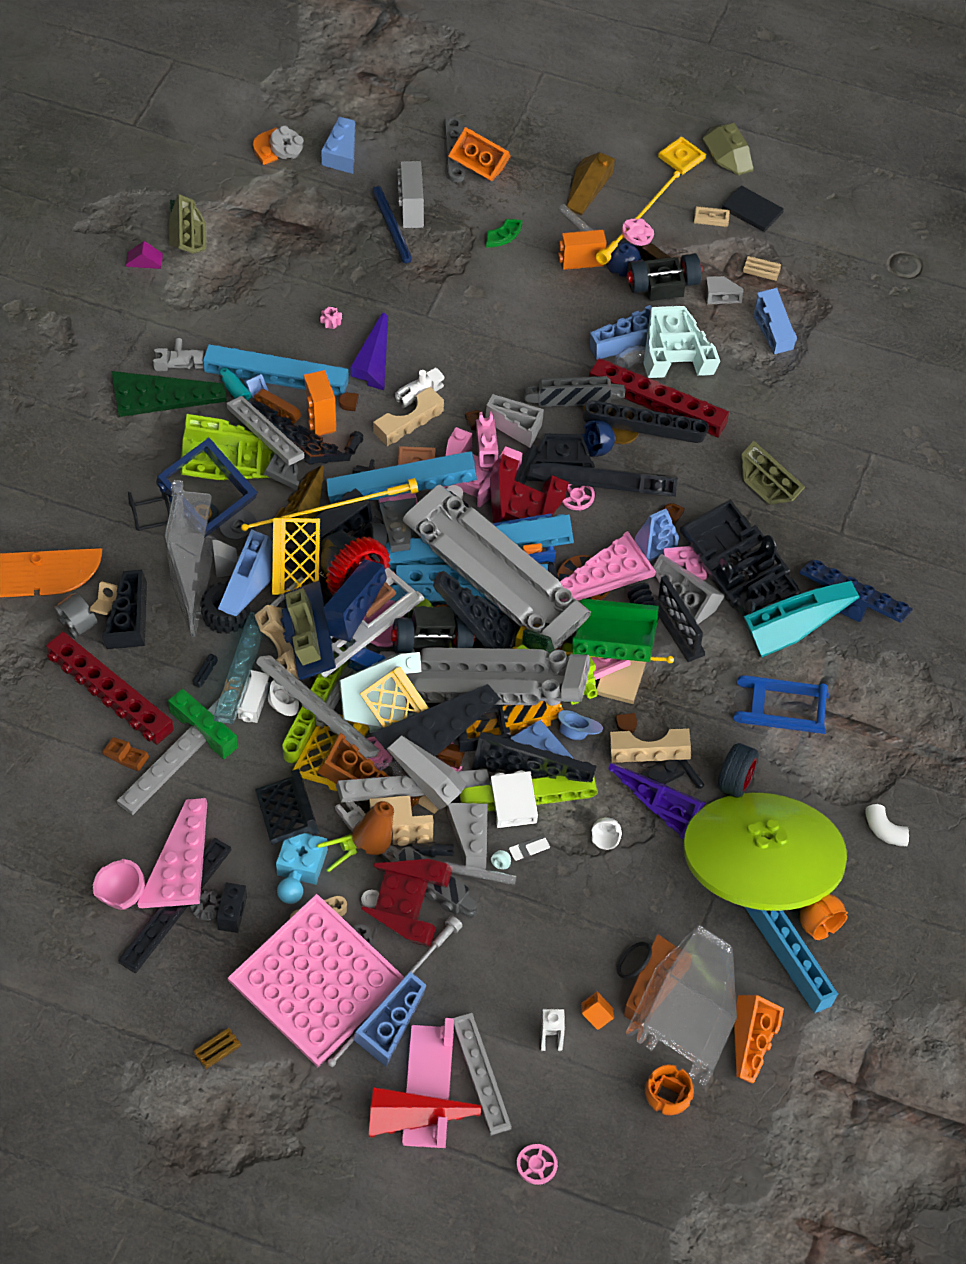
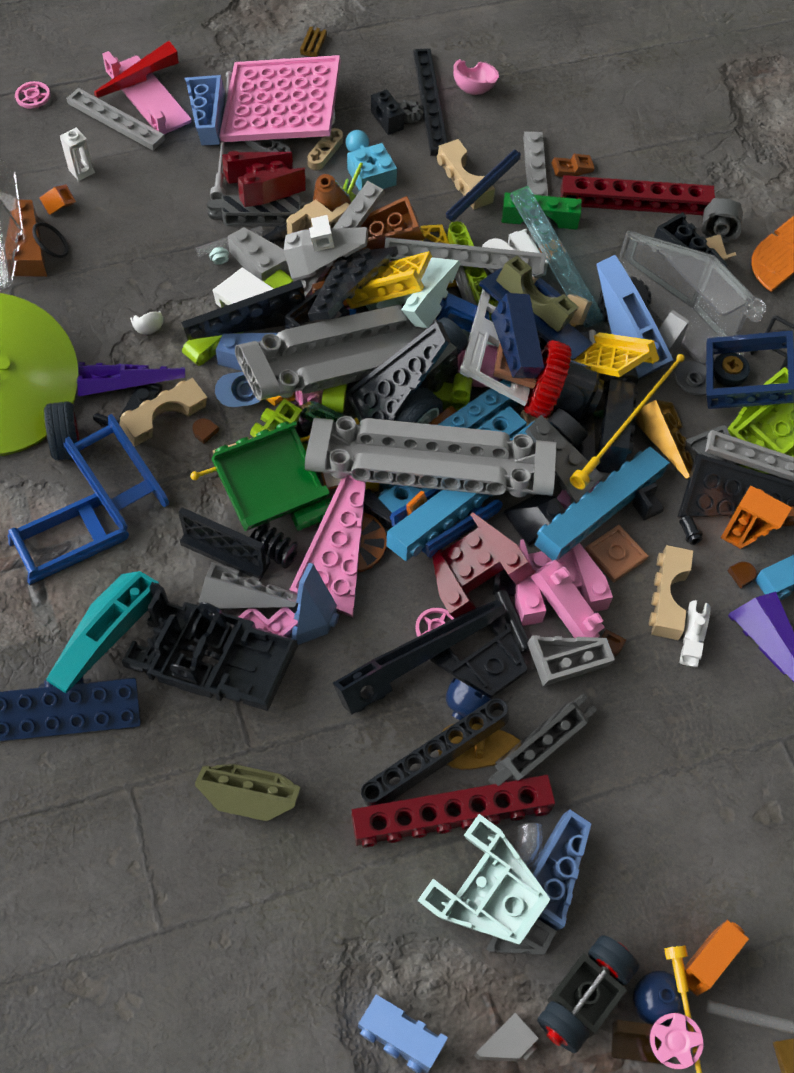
camera: 140 degrees right, 5 degrees up
(179, 867) = (452, 116): bright pink wing -> none
(205, 670) = (586, 255): black axle -> none
(221, 822) = (453, 159): none -> tan arch
(233, 763) = (483, 185): none -> dark blue axle
(300, 803) = (398, 188): black fence -> none
(429, 762) = (321, 233): none -> white brick
(529, 848) = (207, 285): white sticker -> none
(675, 511) = (326, 676): reddish brown tile -> none
(720, 697) = (131, 495): none -> blue piece

